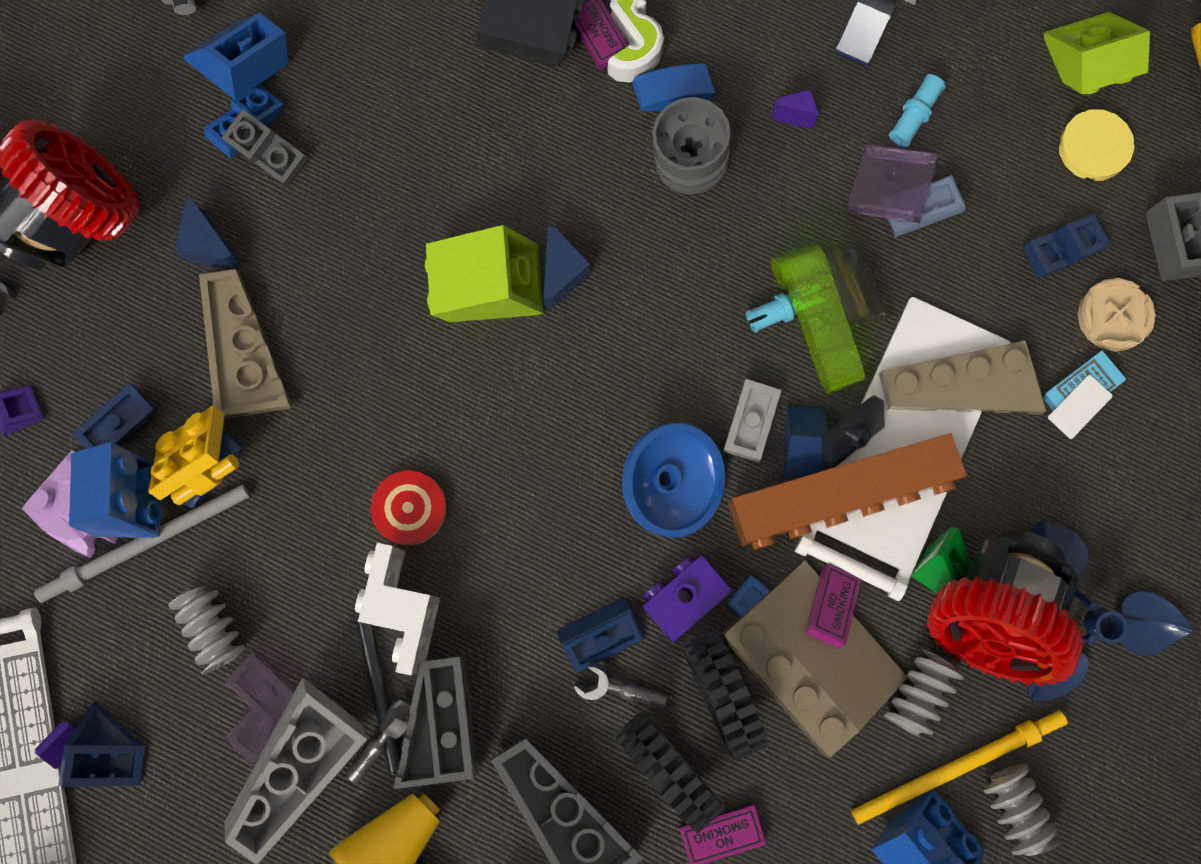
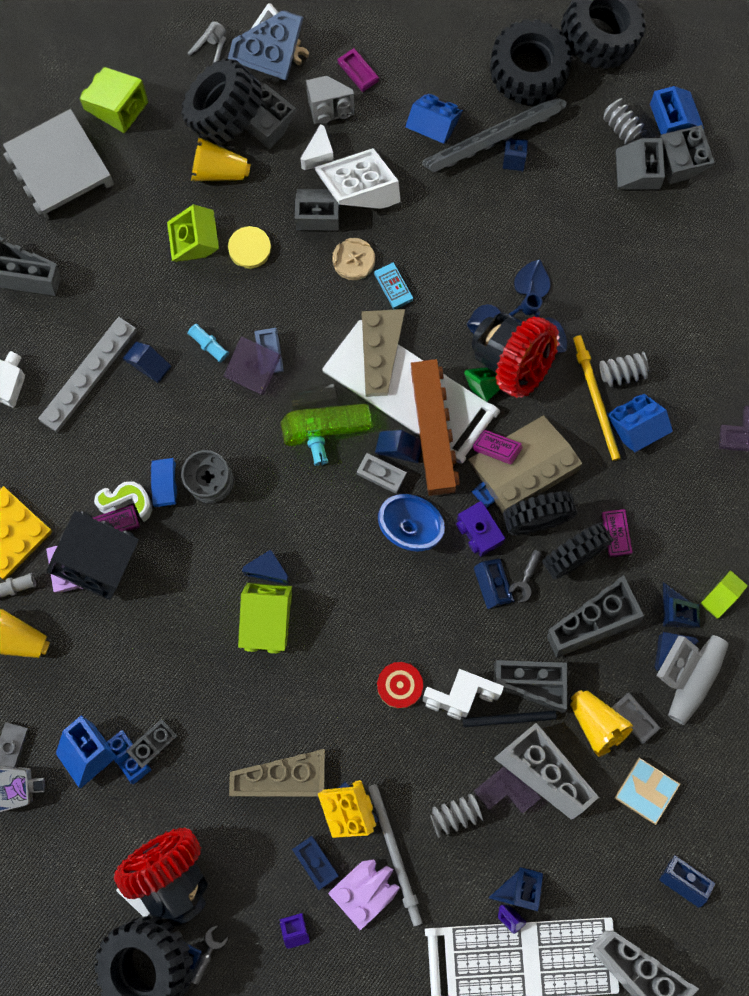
camera: 80 degrees left, 5 degrees down
(112, 494) = (364, 860): blue slope -> none
(200, 241) = (207, 790): dark blue slope -> none
(391, 726) = (528, 710): flat silver piece -> none
(796, 109) = (193, 411): dark purple slope -> none
(853, 431) = (400, 416): black plate -> none
(924, 694) = (554, 407): light grey piece -> none
(1066, 246) = (308, 277): dark blue slope -> none
(1080, 406) = (405, 290): white sticker -> none

